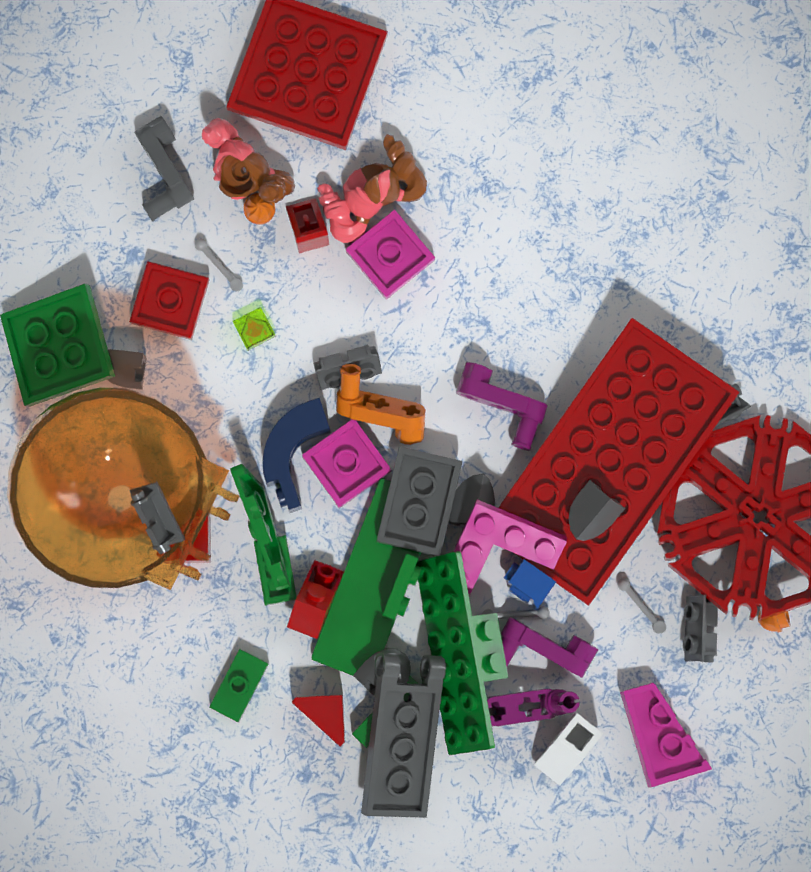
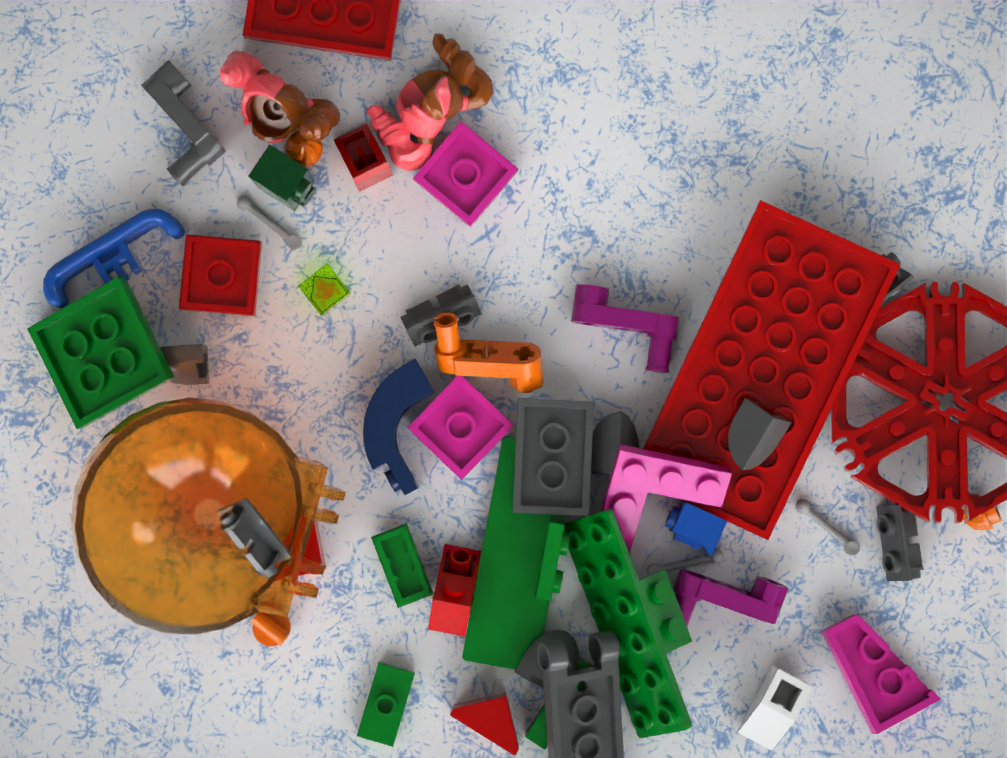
camera: 10 degrees left, 5 degrees up
(79, 264) = (107, 253): none -> blue piece
(154, 602) = (271, 628): none -> orange plate
(237, 229) = (283, 178): none -> dark green piece
(261, 523) = (376, 517): green wing -> none
(508, 706) = (743, 656): magenta beam -> none

